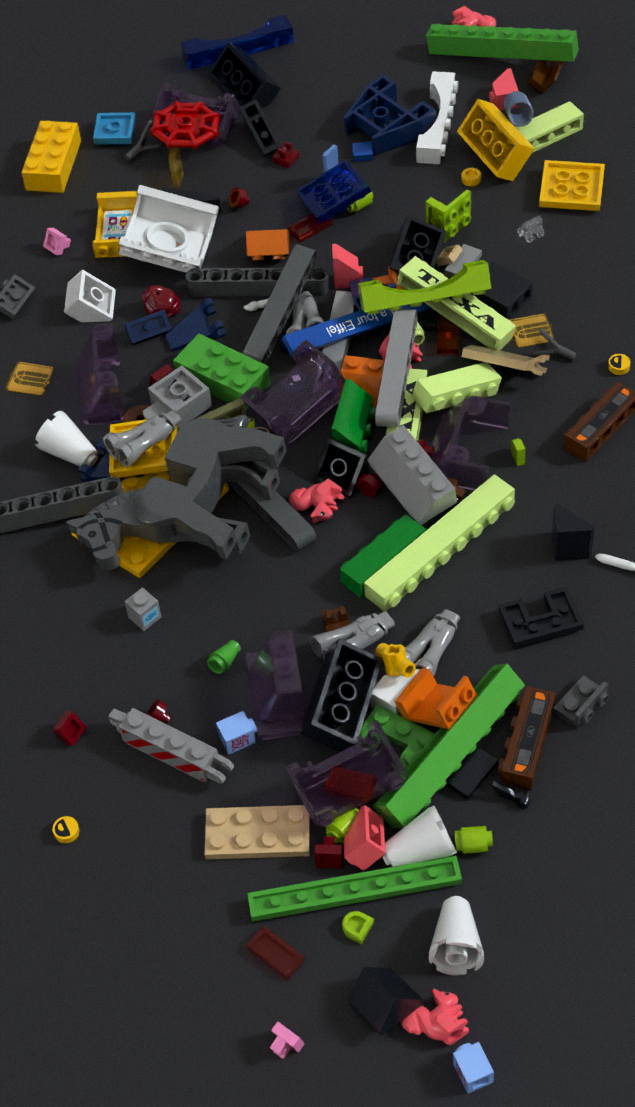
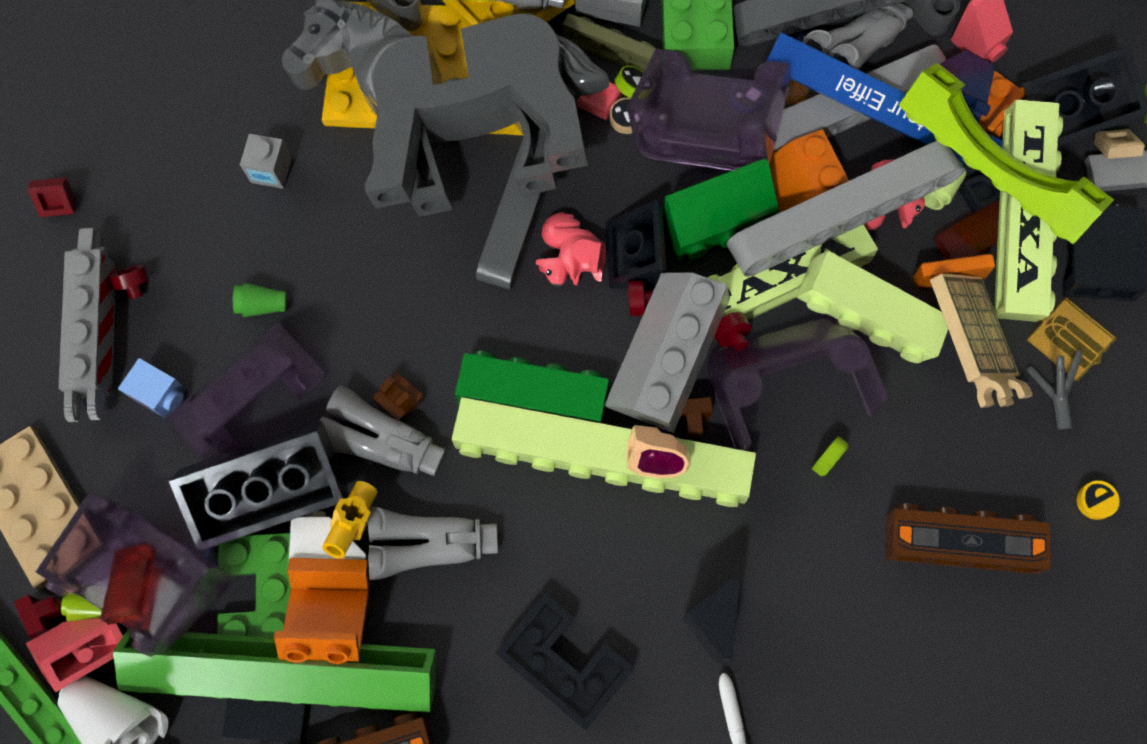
camera: 55 degrees right, 20 degrees up
(456, 359) = (969, 266): none -> orange tile
(463, 508) = (656, 453): none -> light nougat rock

